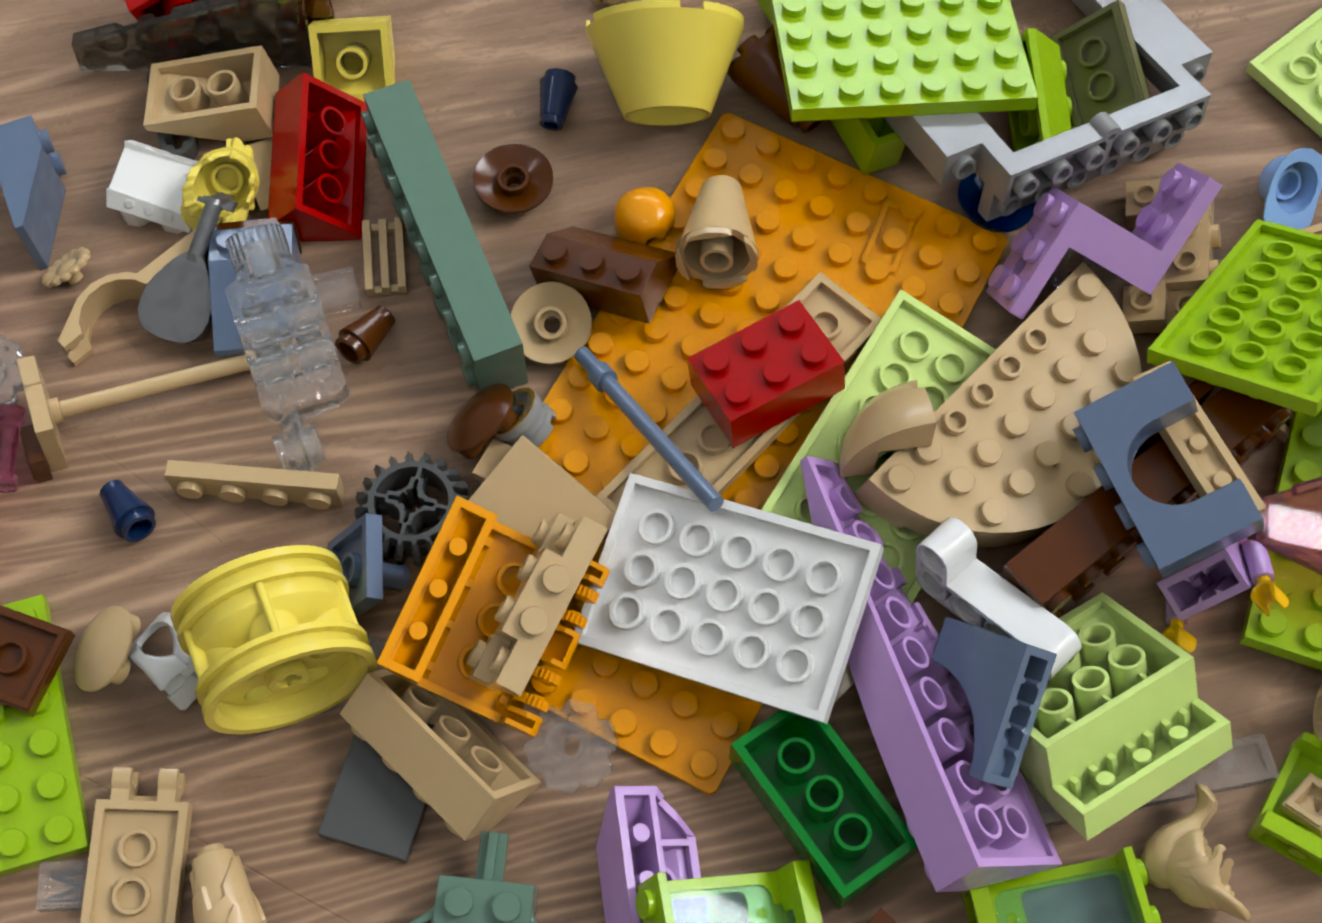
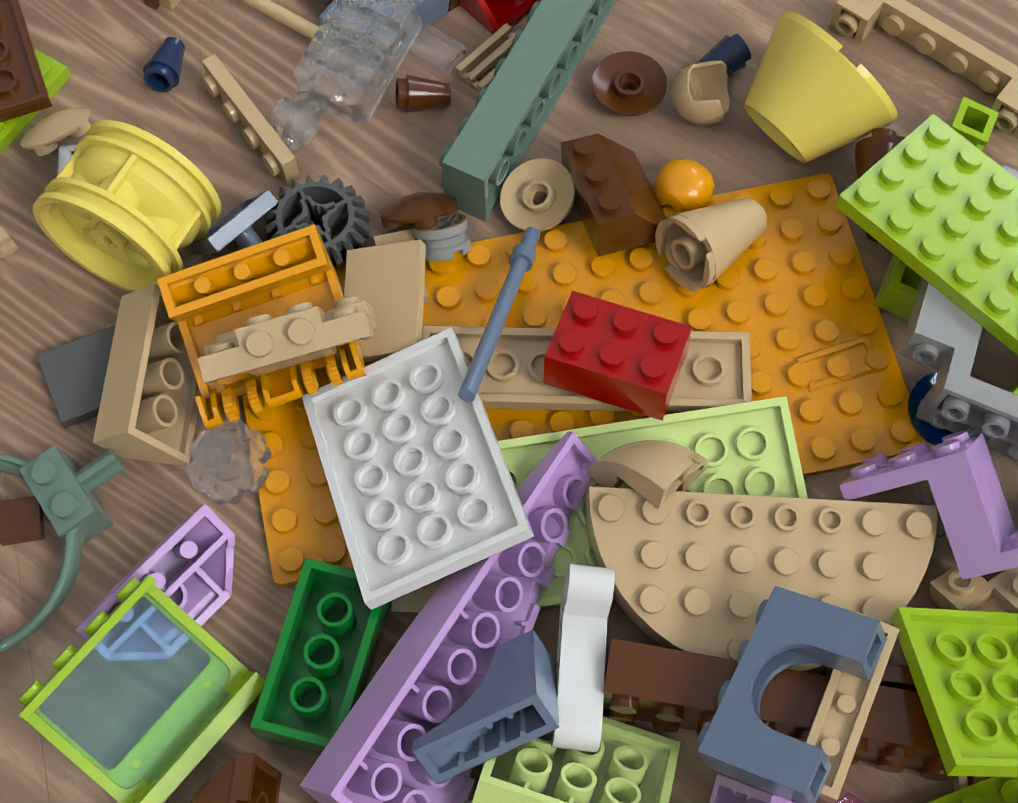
camera: 50 degrees right, 0 degrees up
(576, 137) = (701, 93): none -> tan hair

